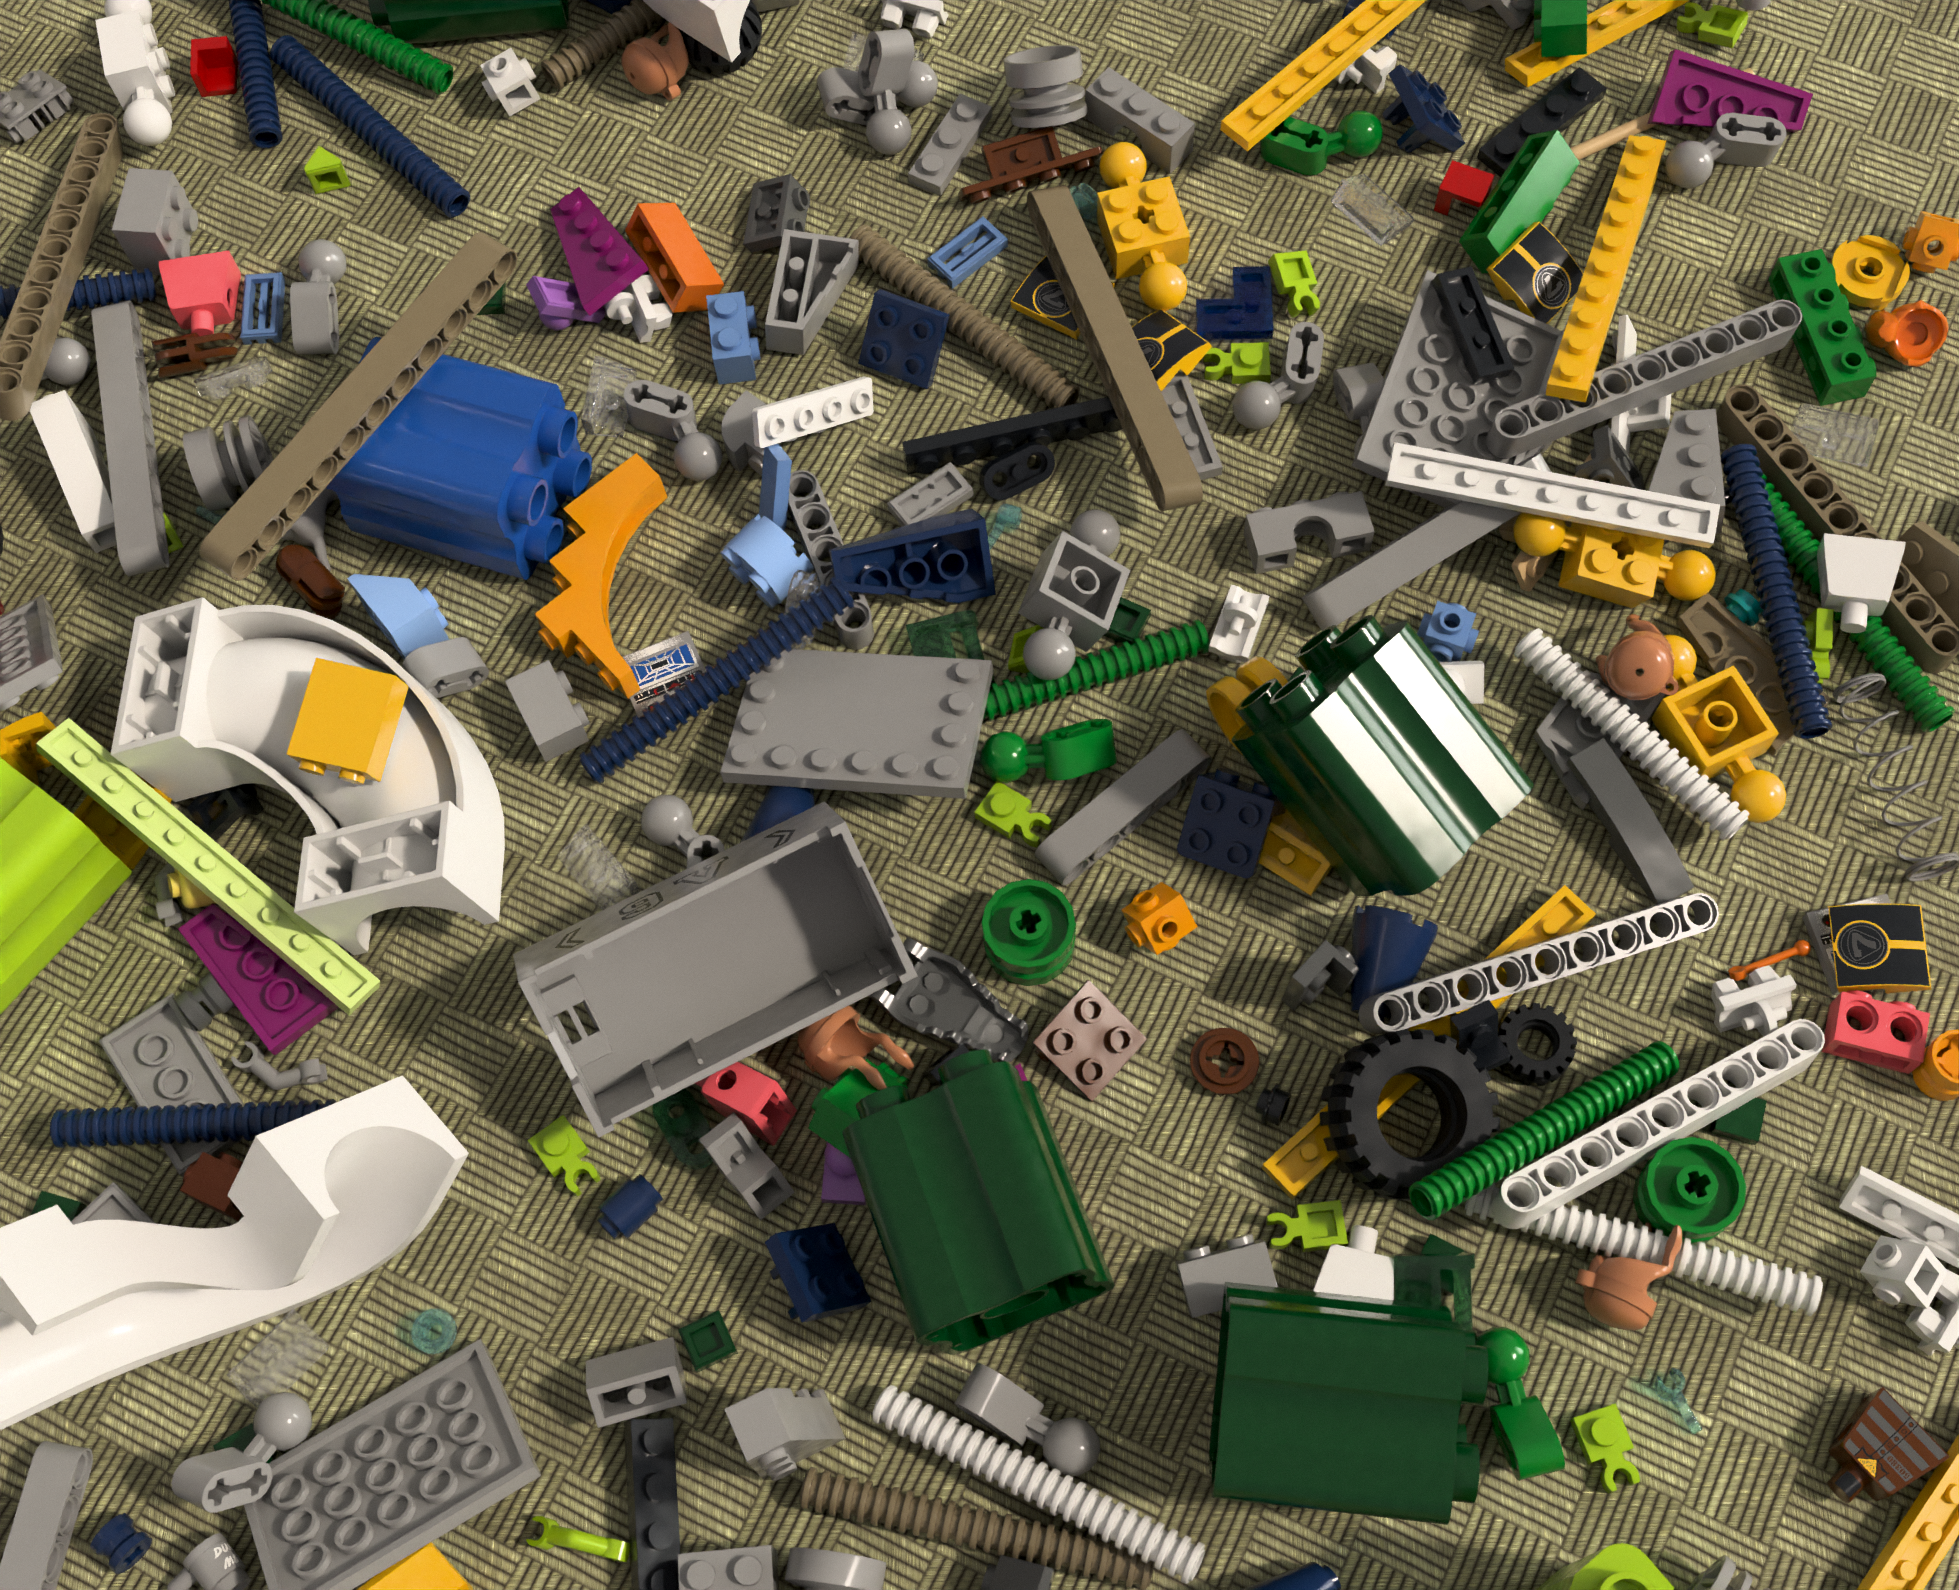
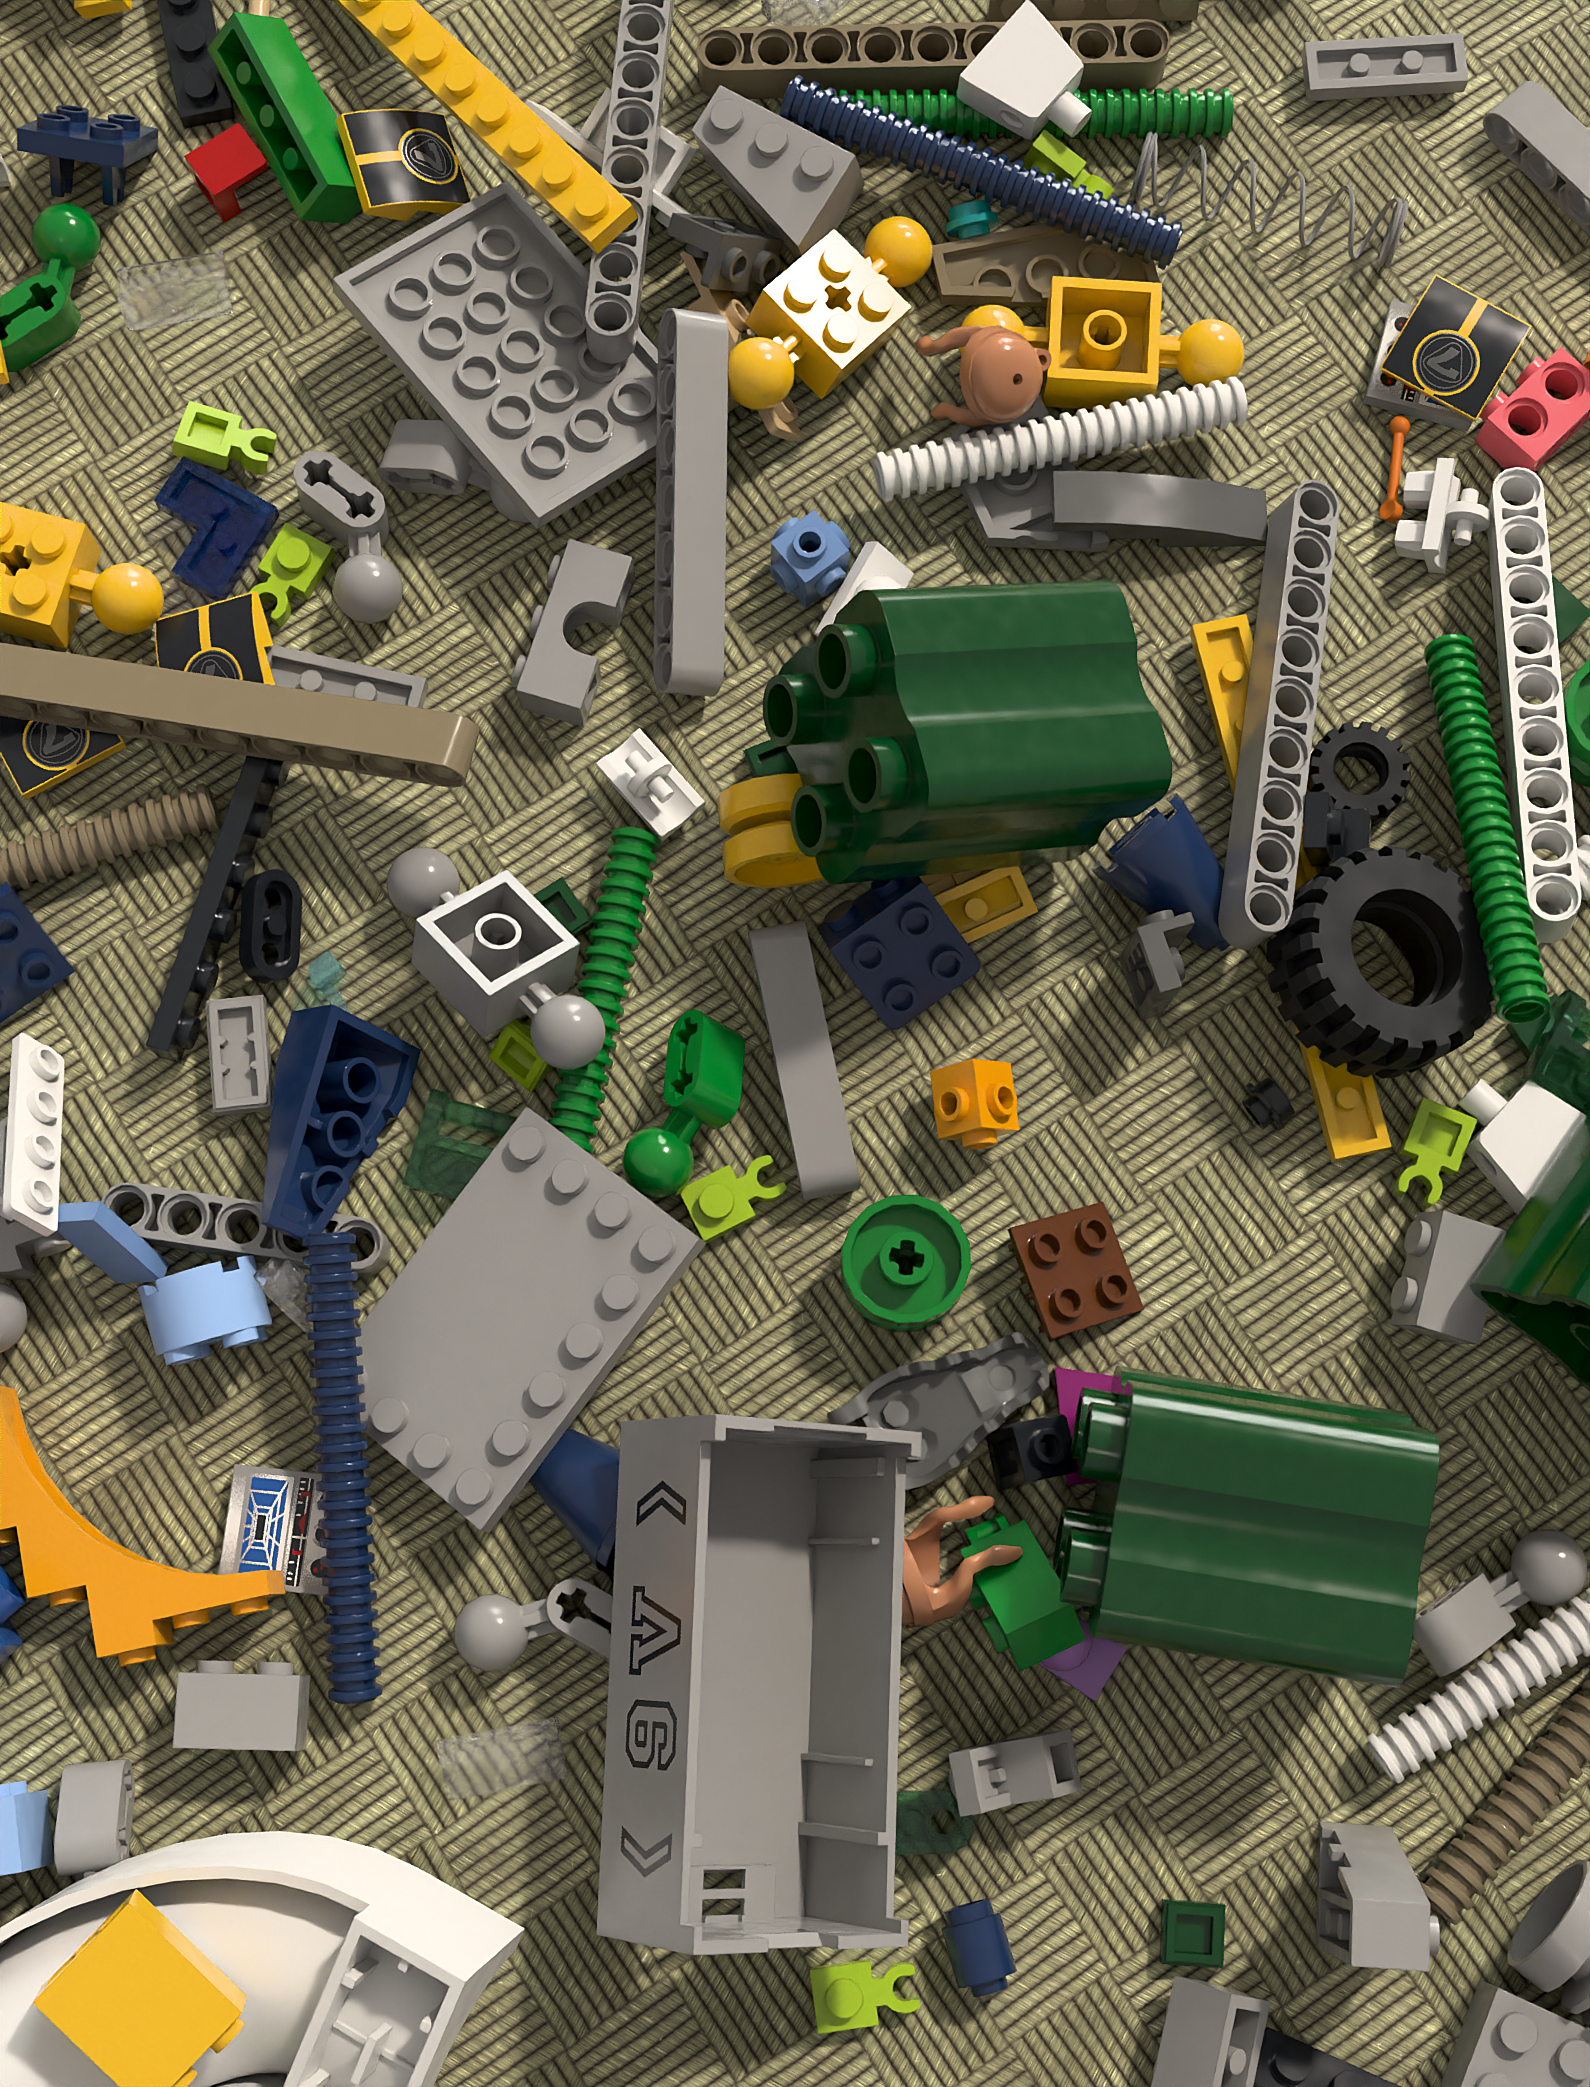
camera: 65 degrees left, 10 degrees up
(752, 1097) = (942, 1718): coral torso -> none
(817, 1272) = (1194, 1756): dark blue plate -> none
(1240, 1050) = (1178, 1103): reddish brown gear -> none
(1472, 325) = (443, 274): black plate -> none
(1553, 495) = (737, 333): white plate -> none

